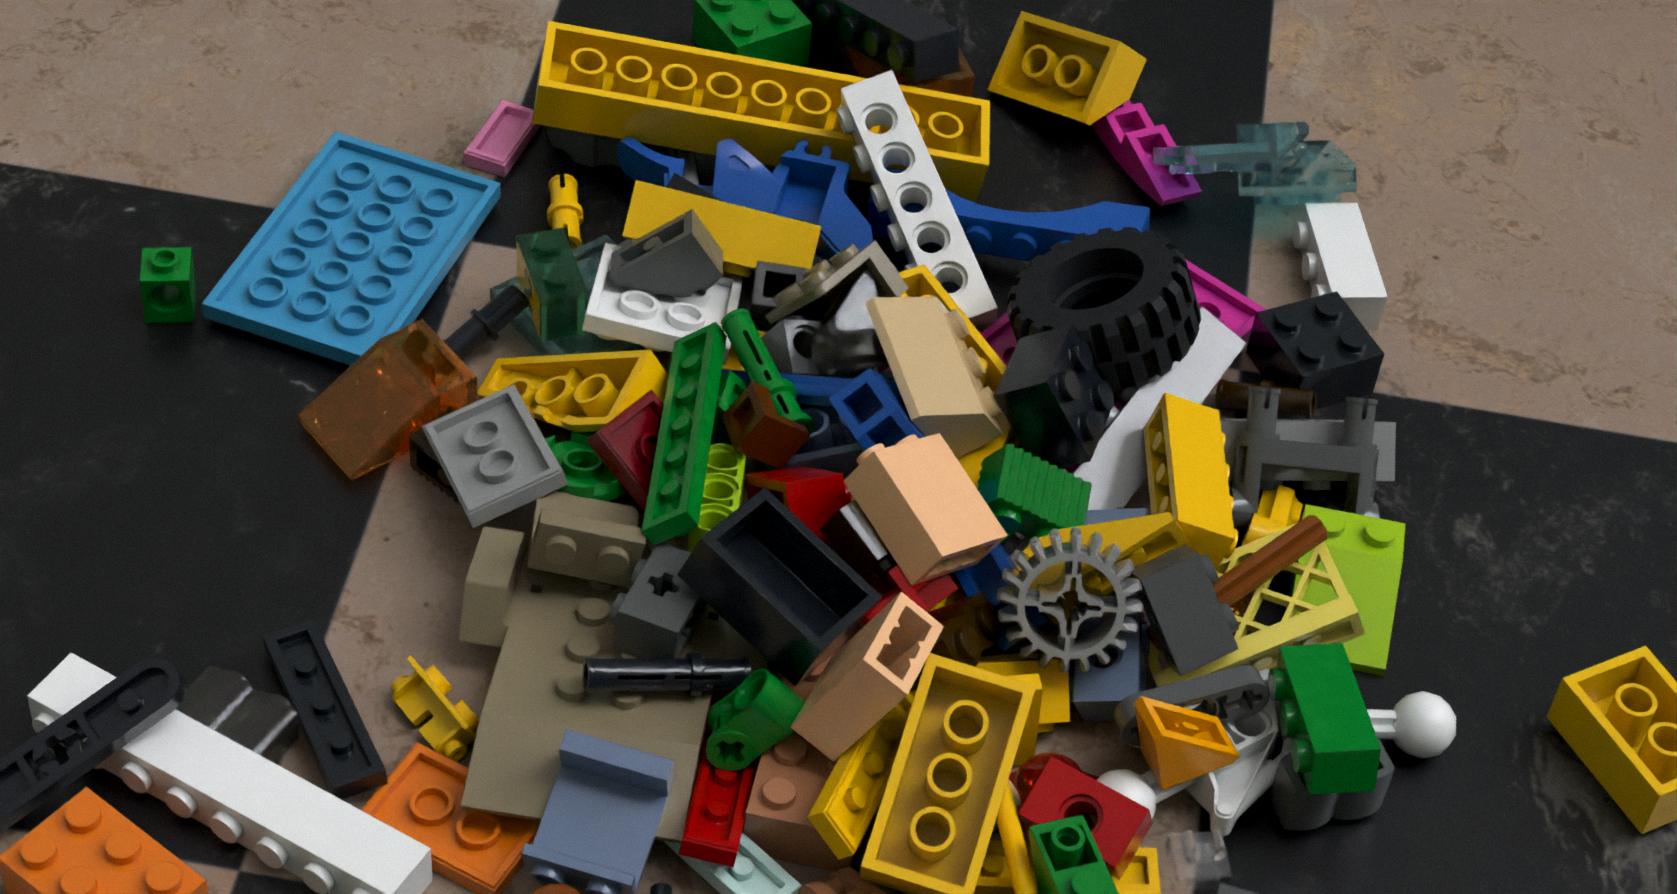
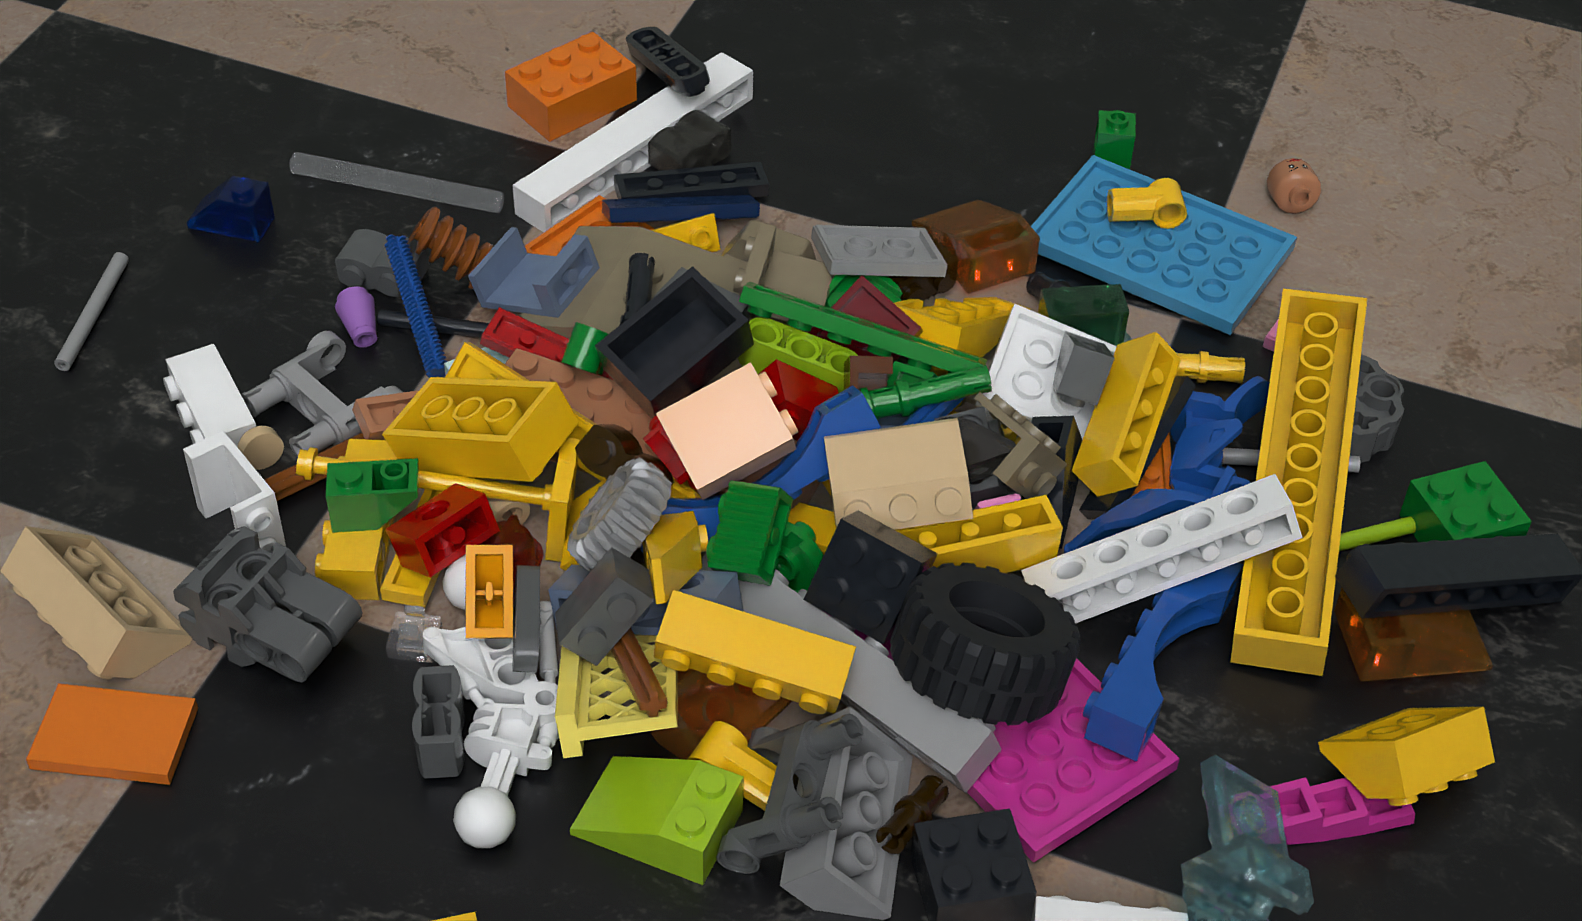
camera: 105 degrees right, 0 degrees up
(234, 134) = (1293, 182): none -> nougat head
(319, 234) = (1158, 202): none -> yellow piece
(388, 709) = (679, 208): none -> dark blue tile
(867, 677) = (555, 357): light nougat brick -> none
(1325, 719) = (469, 688): green brick -> none

